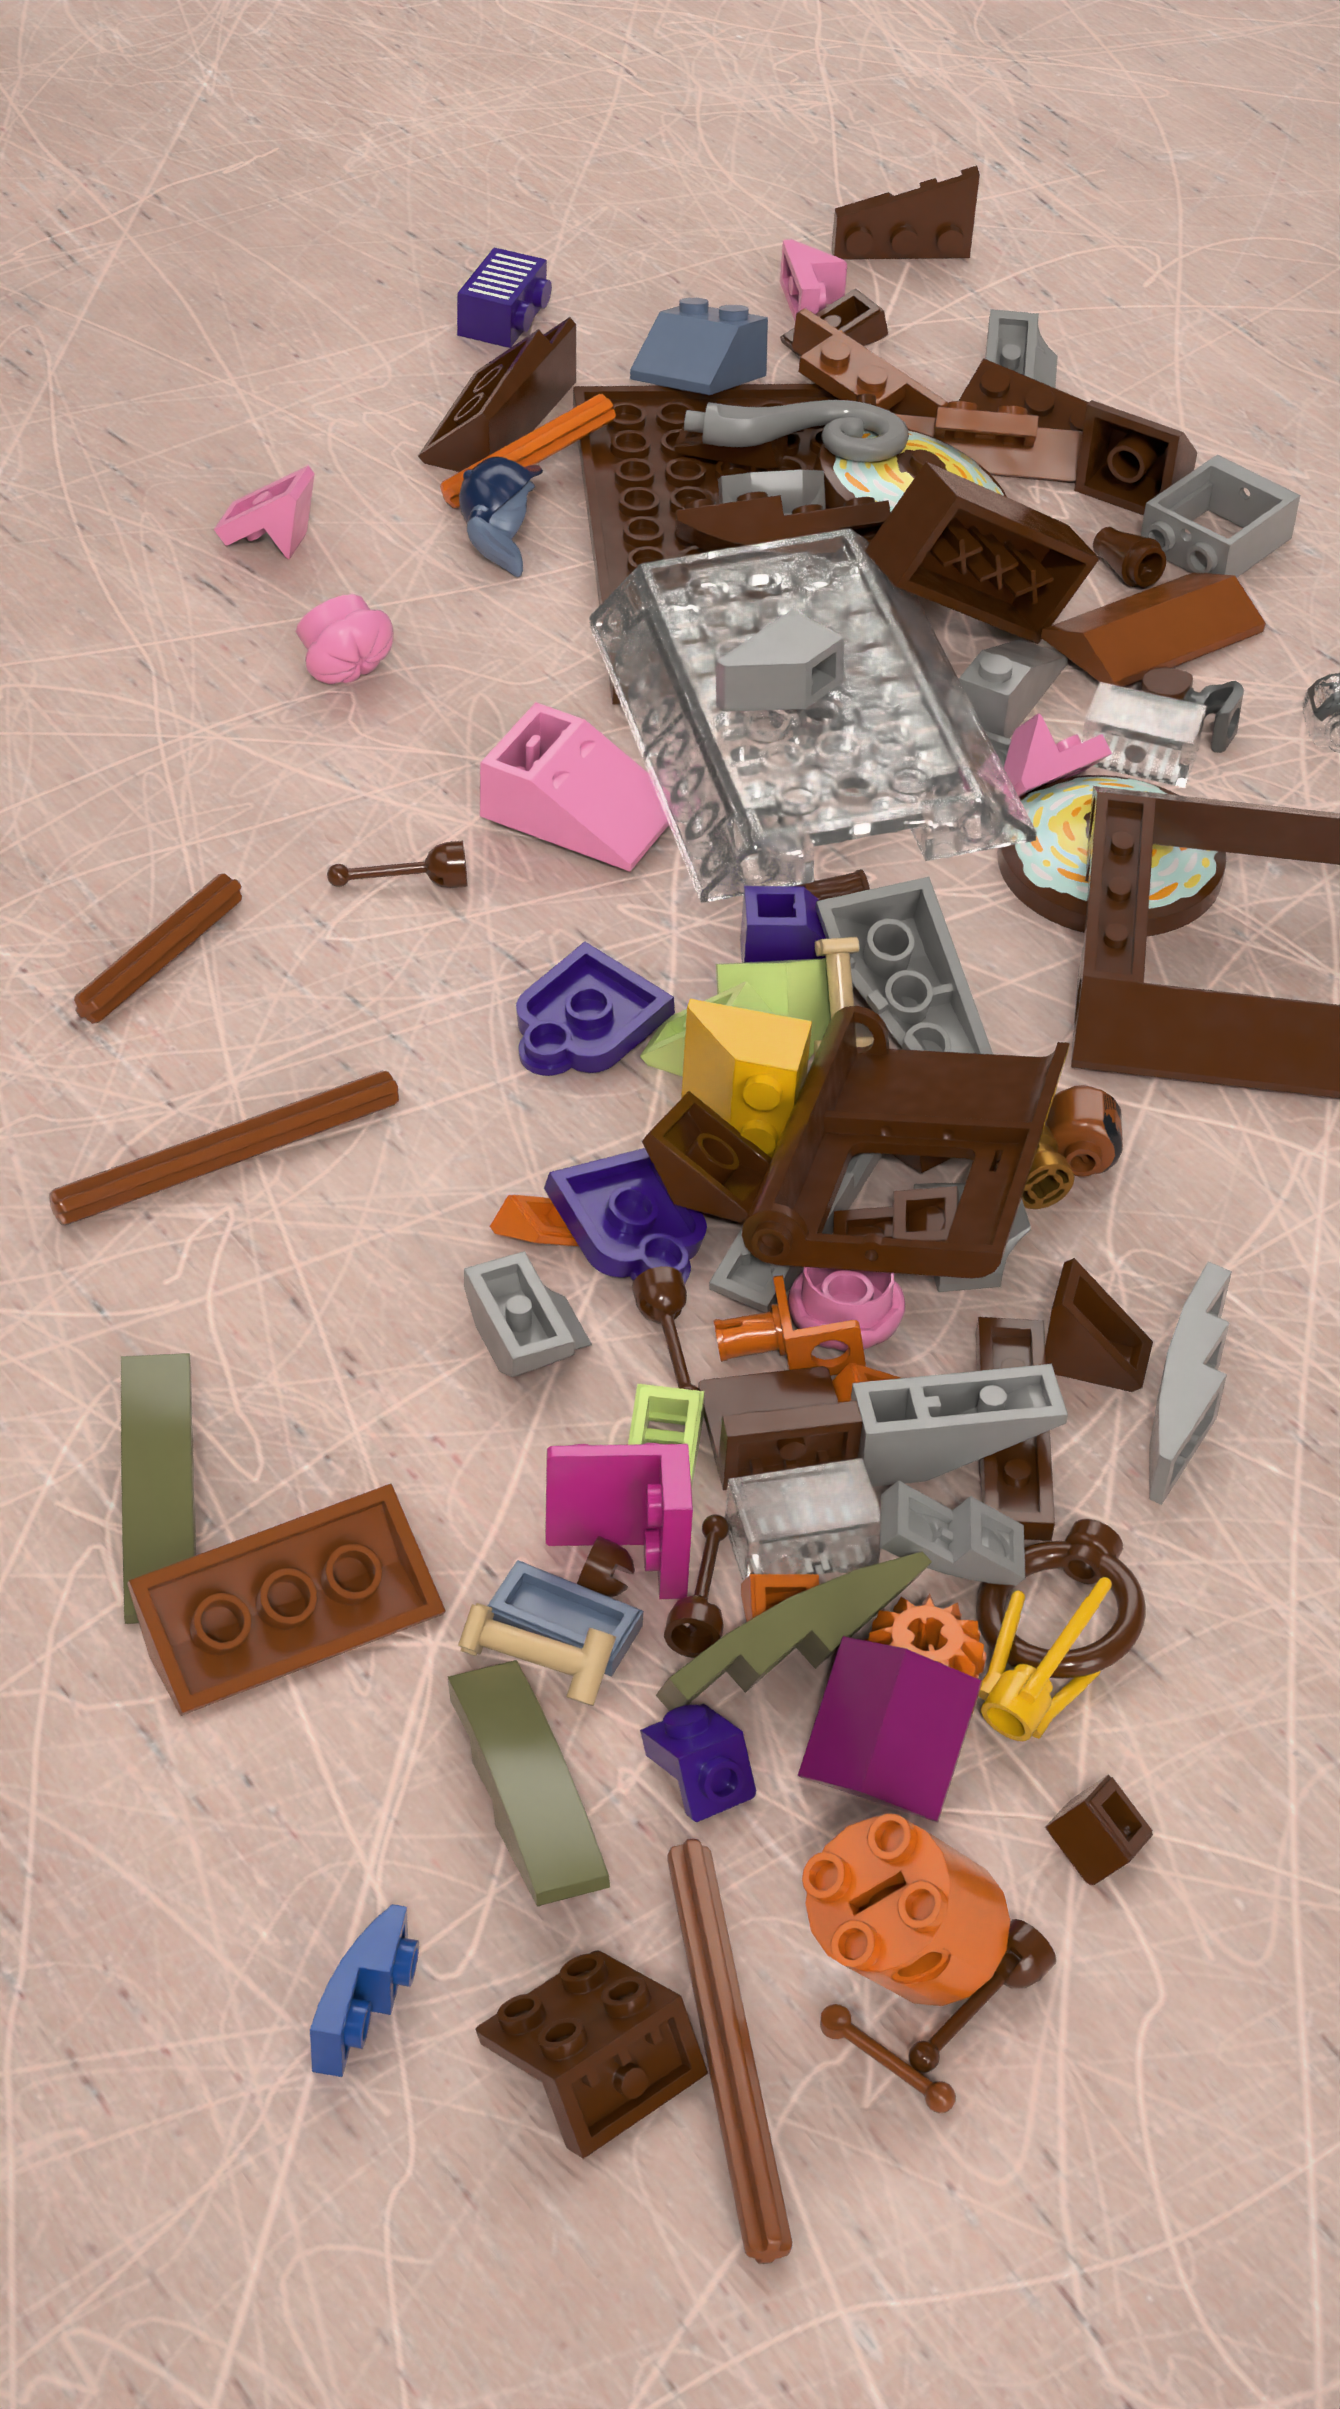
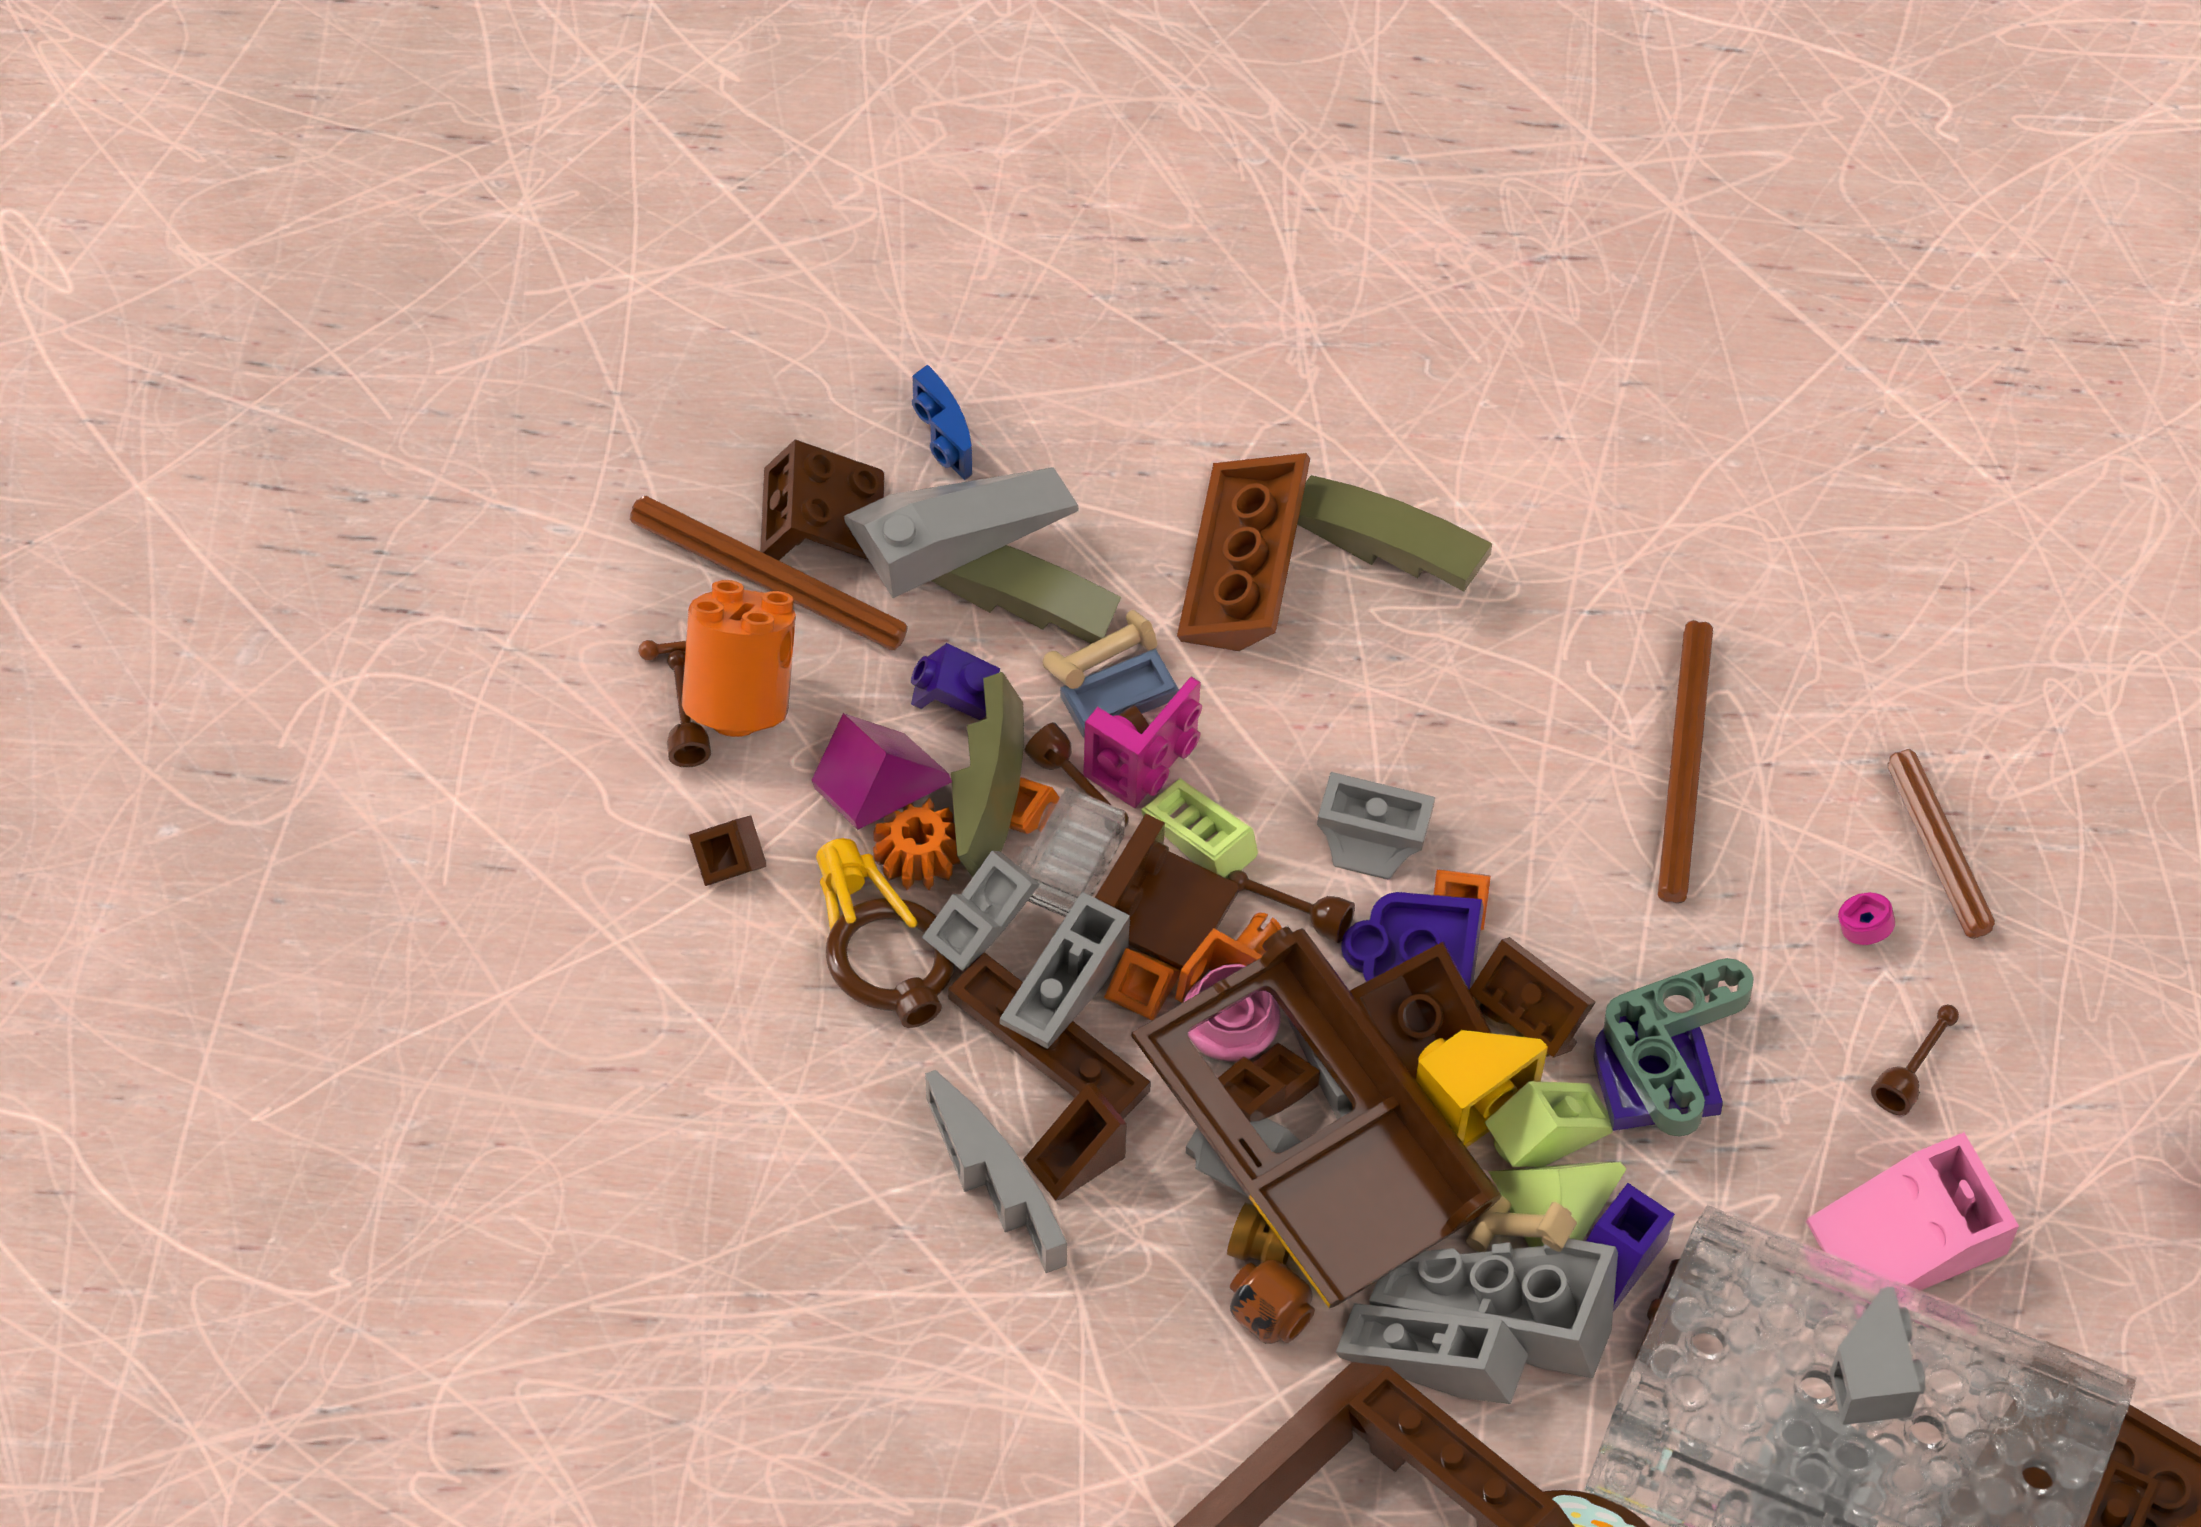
camera: 130 degrees right, 15 degrees up
(292, 952) = (1866, 918): none -> dark pink tile
(538, 1835) = (941, 528): none -> light grey wedge
(551, 1009) = (1659, 1024): none -> sand green beam
(617, 1089) = (1531, 997): none -> reddish brown bracket
(1007, 989) = (1437, 1350): none -> light grey slope

